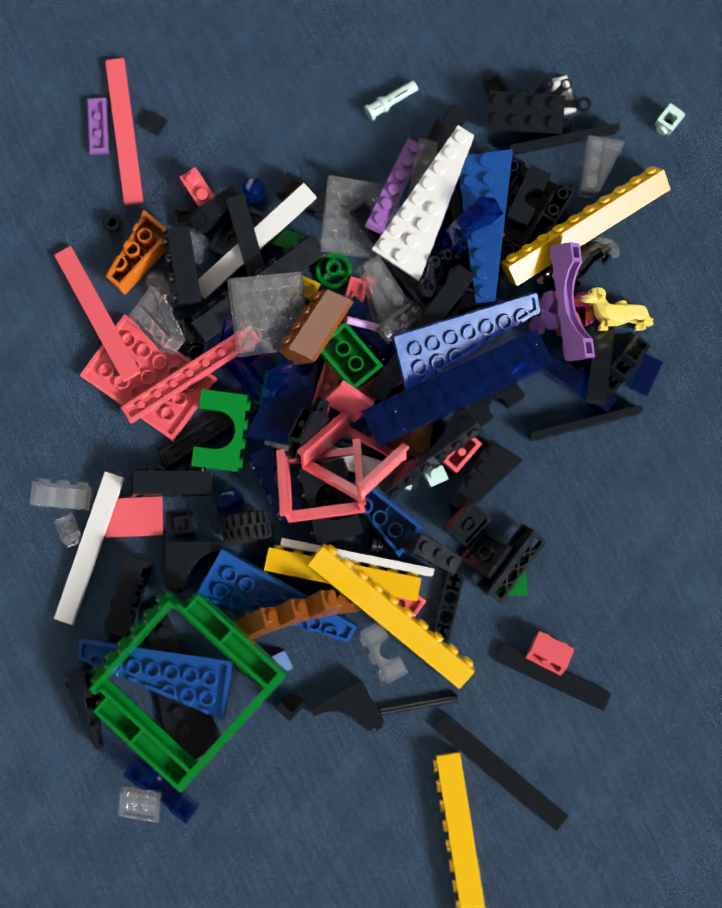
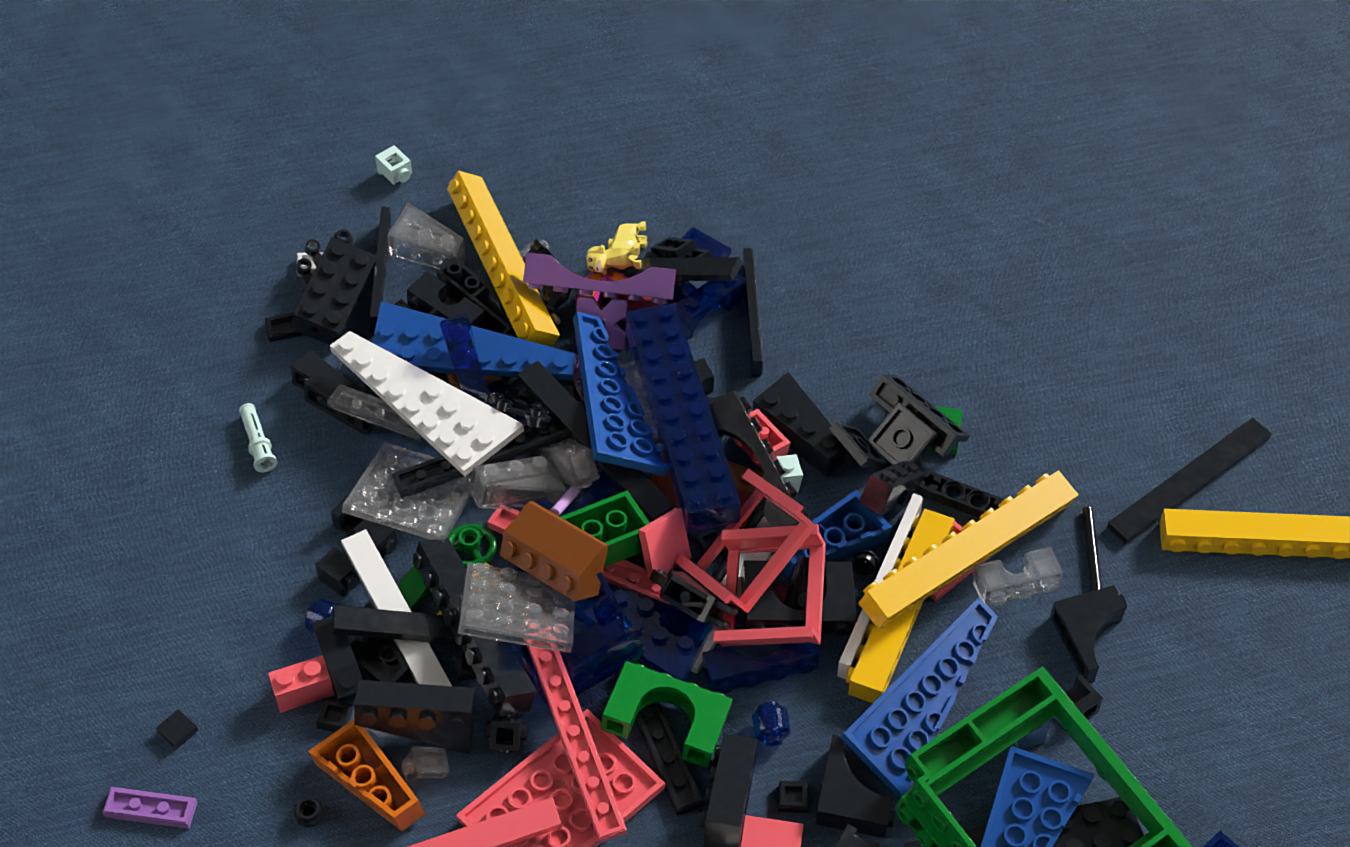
camera: 75 degrees left, 30 degrees down
(124, 131) = (172, 772): coral tile -> none
(157, 321) = (483, 761): clear wedge -> none
(190, 350) = (538, 731): black plate -> none
(246, 527) = (817, 699): black tyre -> none
(296, 611) = (950, 656): dark orange arch -> none
(393, 188) = (382, 443): medium lavender plate -> none
(550, 653) = (1042, 395): coral brick -> none
(565, 683) = (1071, 405): black tile -> none

